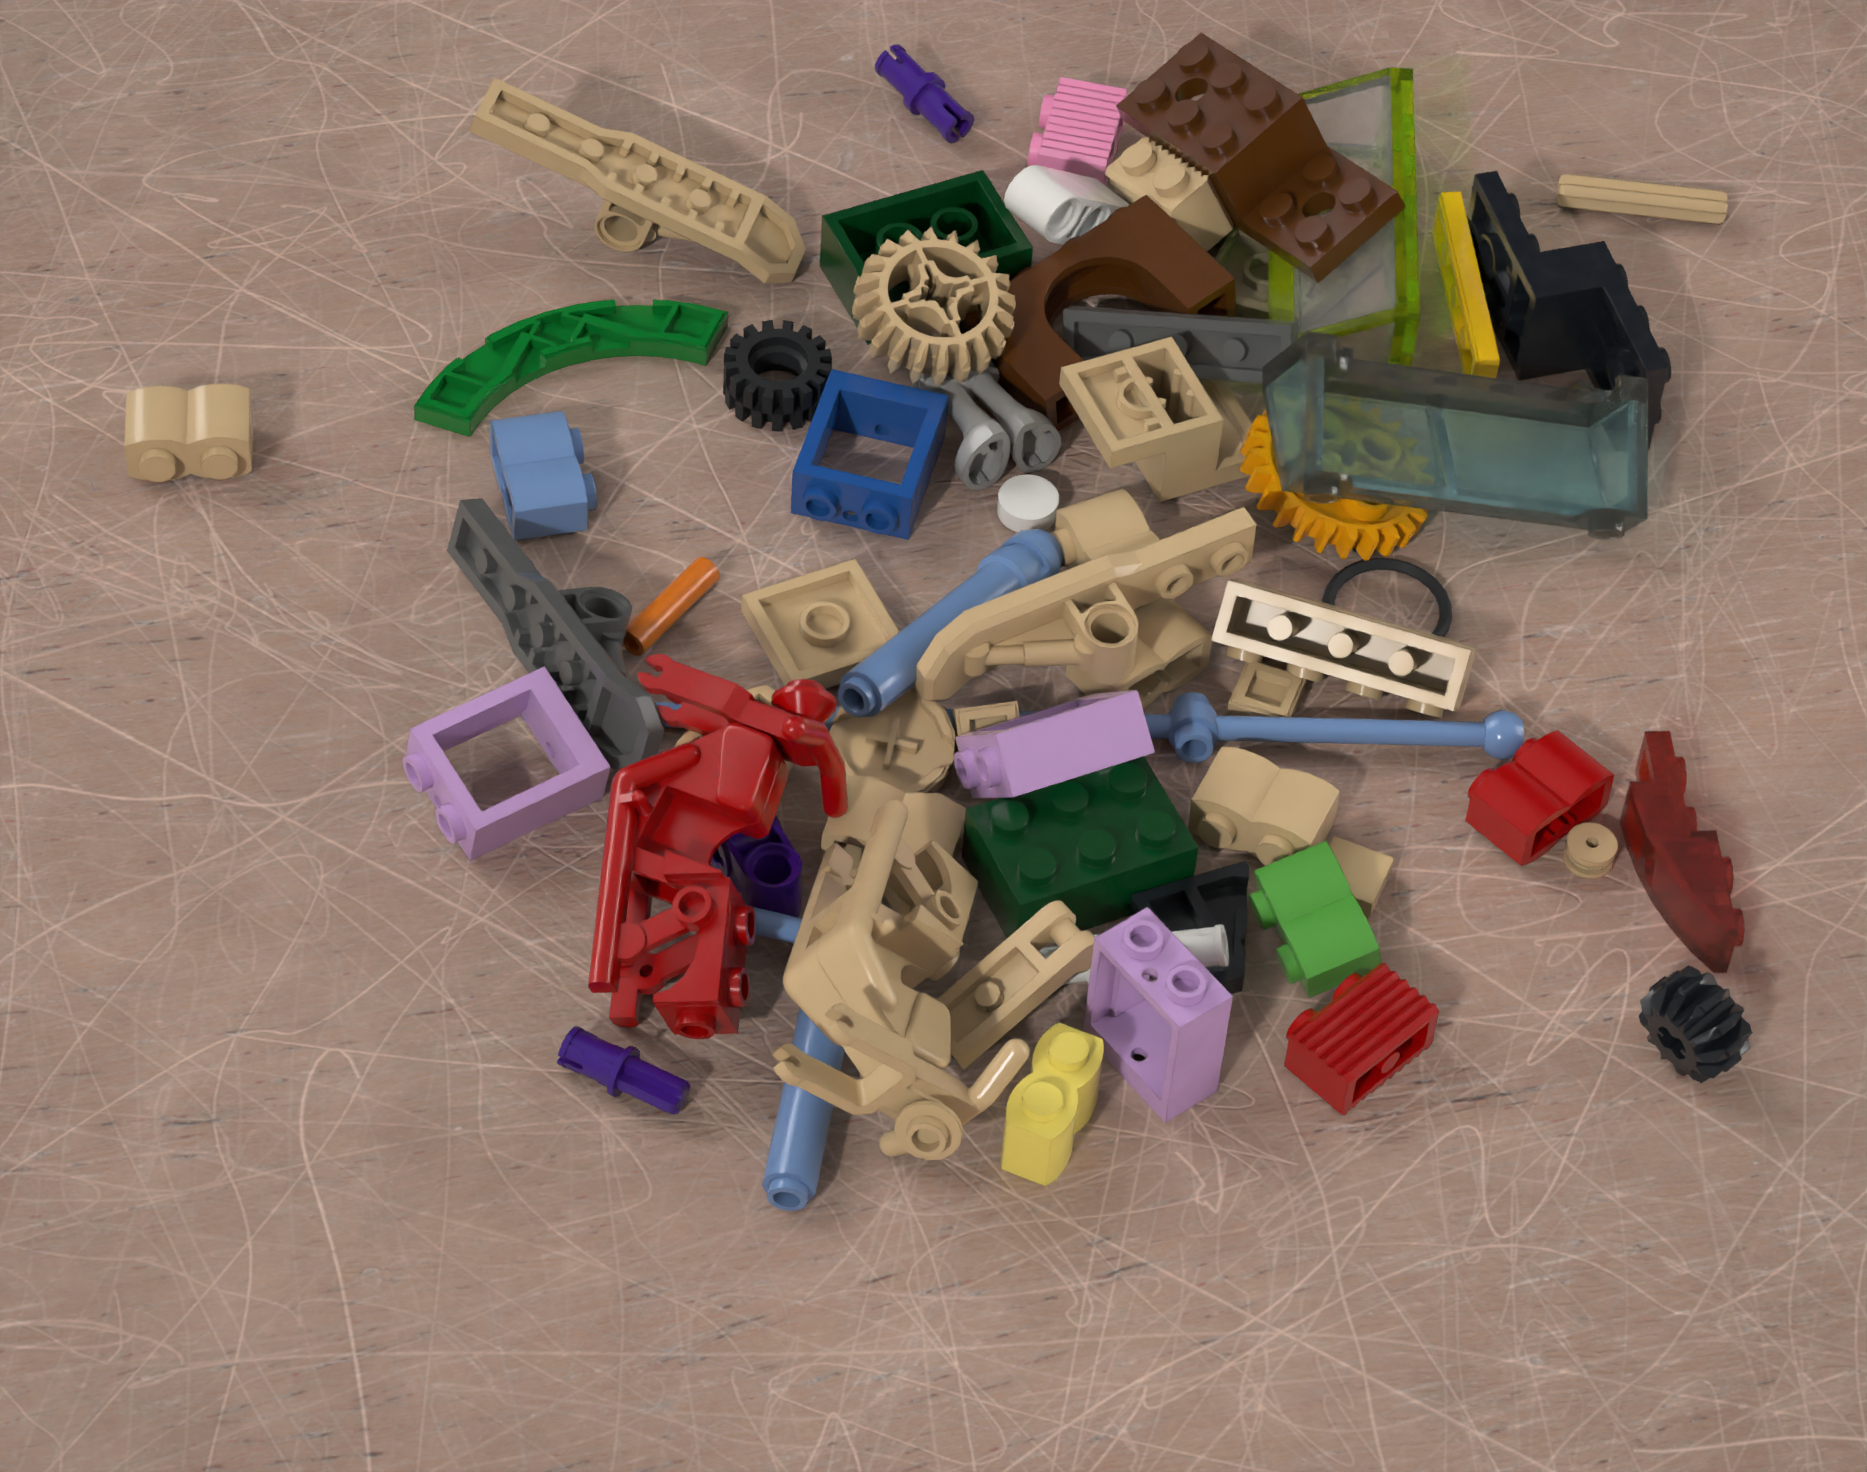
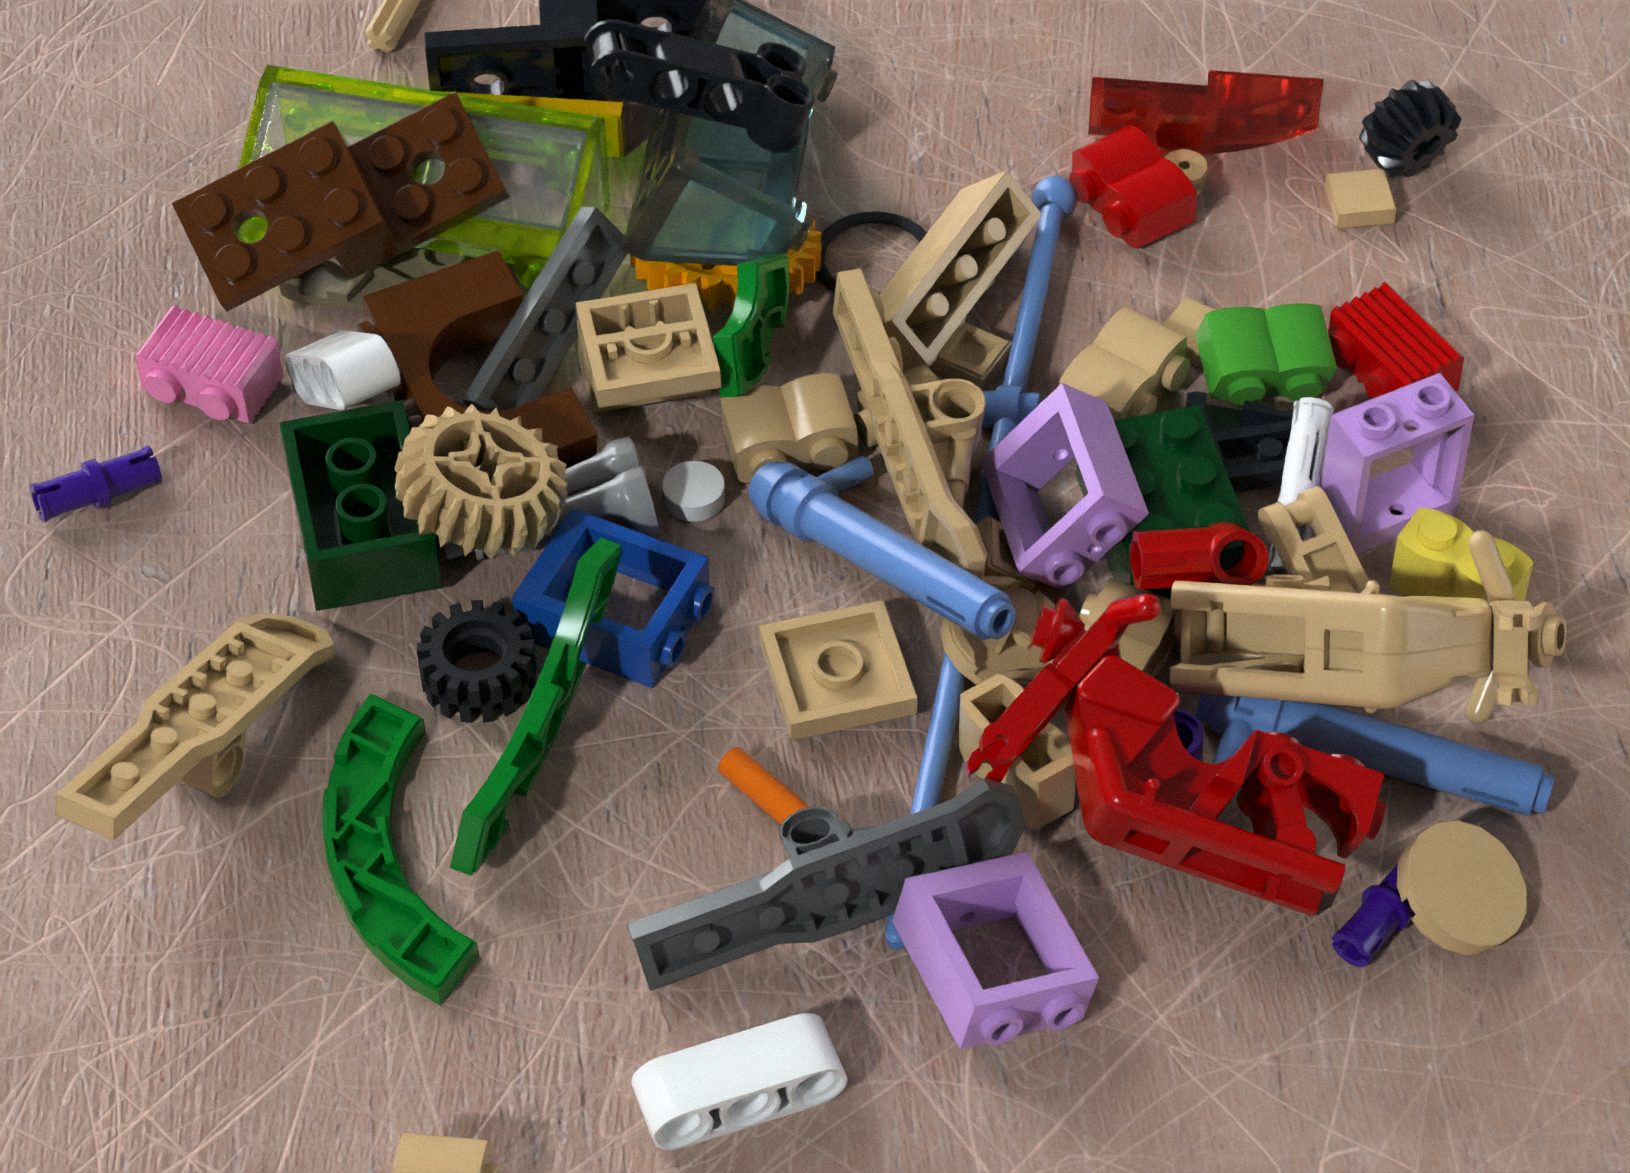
camera: 75 degrees left, 0 degrees up
(348, 611) = (738, 1081): none -> white beam
(541, 475) = (577, 882): medium blue brick -> none
(646, 1119) = (1462, 887): none -> tan tile
(717, 420) = (522, 759): none -> green tile
(974, 855) = (1194, 555): none -> red piece
(1174, 187) = (333, 293): tan brick -> none
(1198, 482) = (757, 311): none -> green tile
(1509, 392) = (760, 91): none -> black piece
(1601, 1008) = (1360, 198): none -> tan tile

